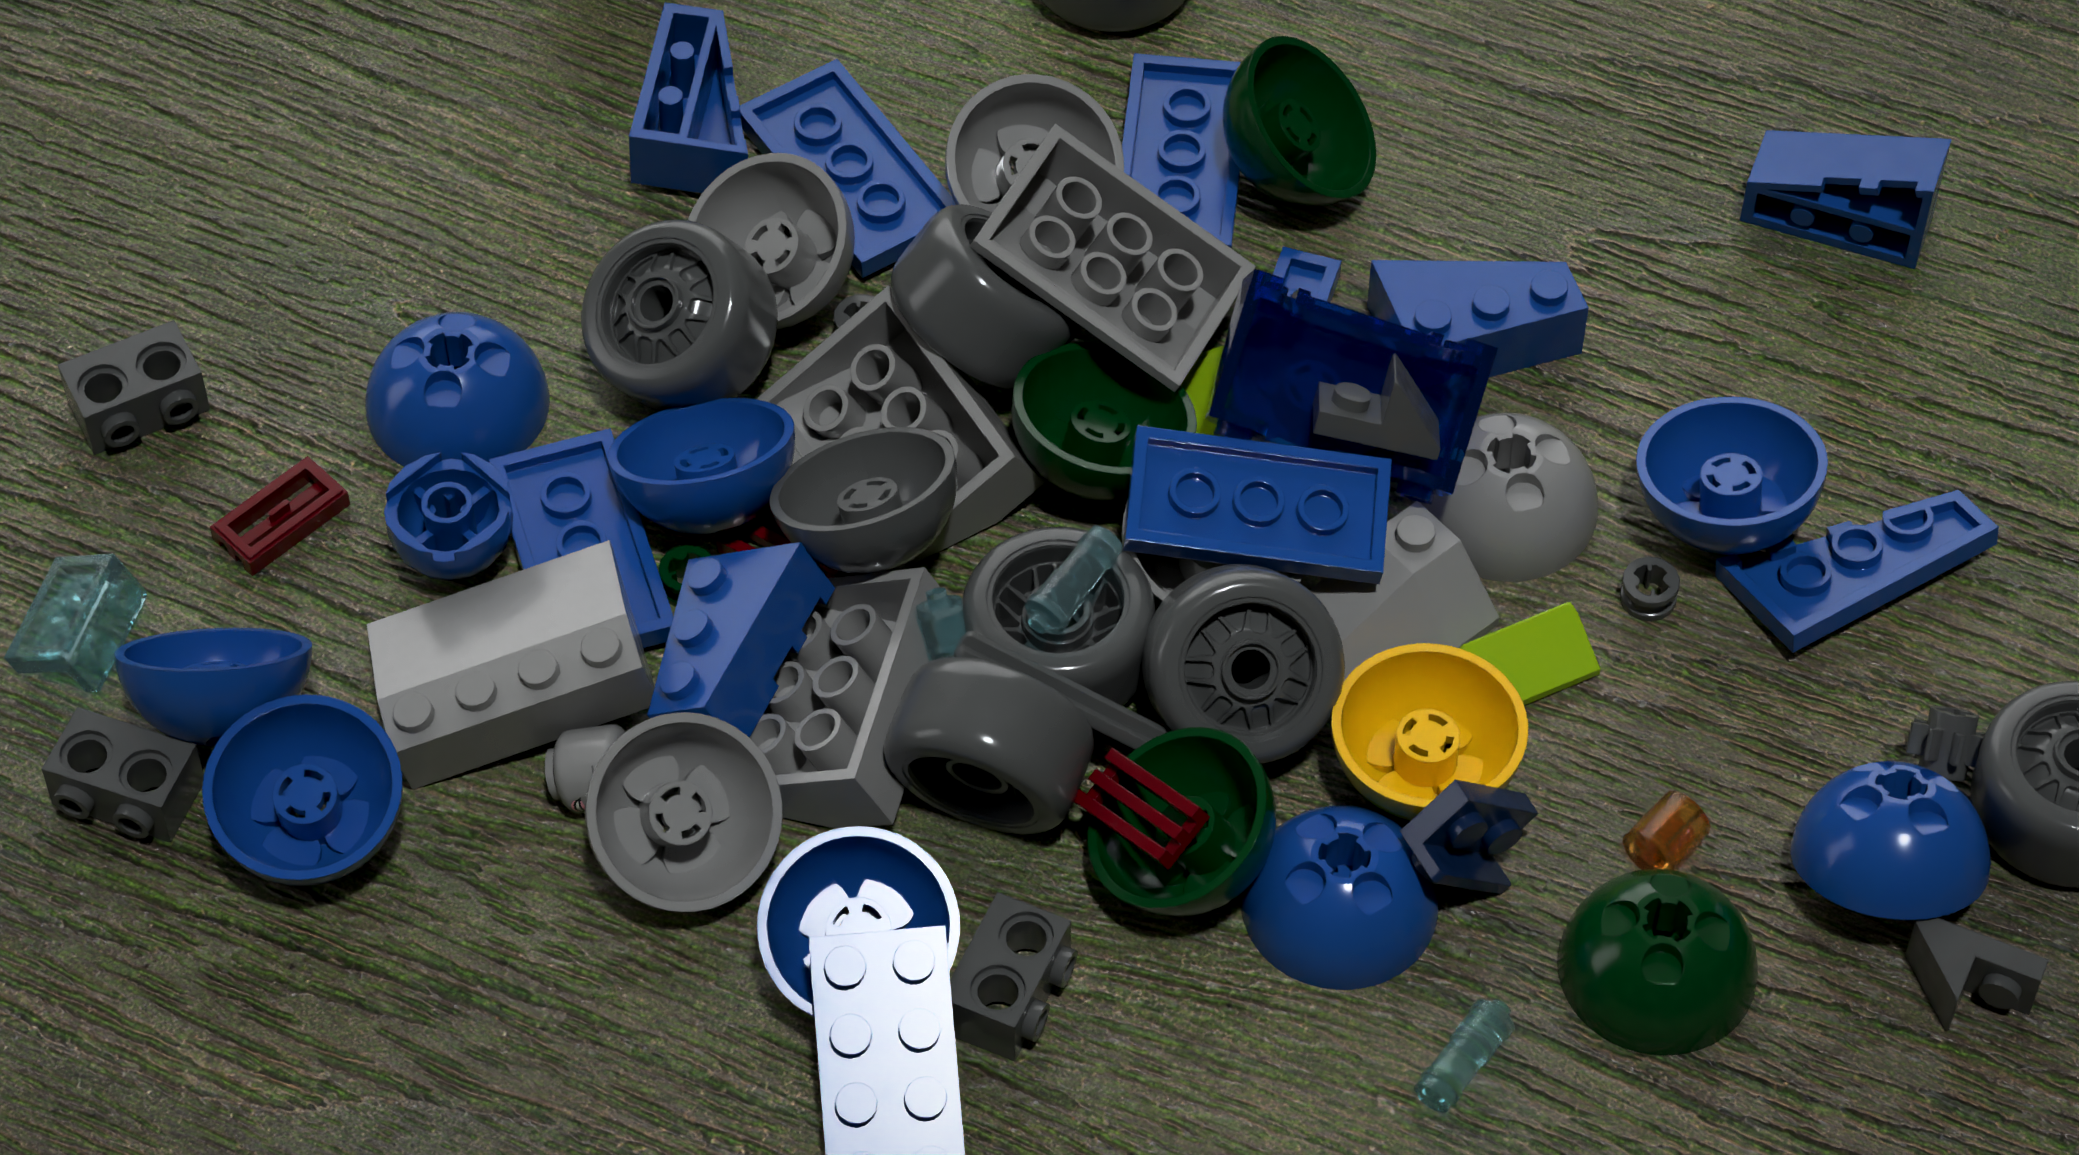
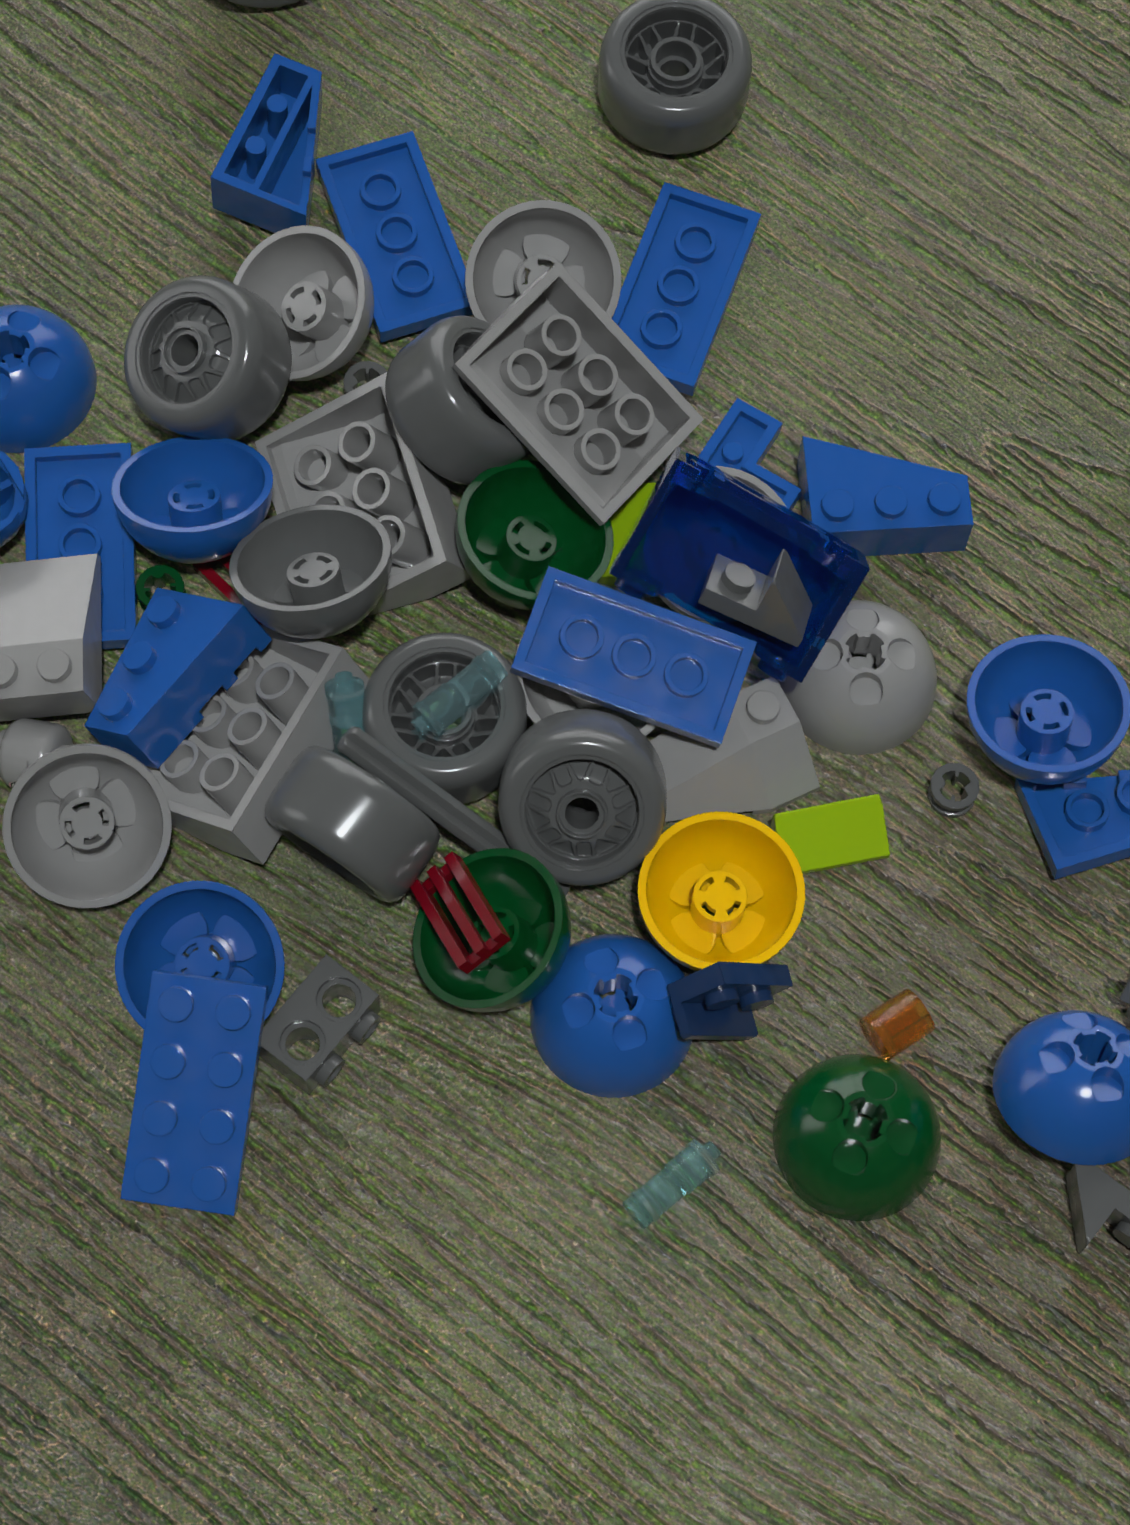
camera: 10 degrees right, 15 degrees up
(1298, 125) = (780, 291): dark green piece -> none

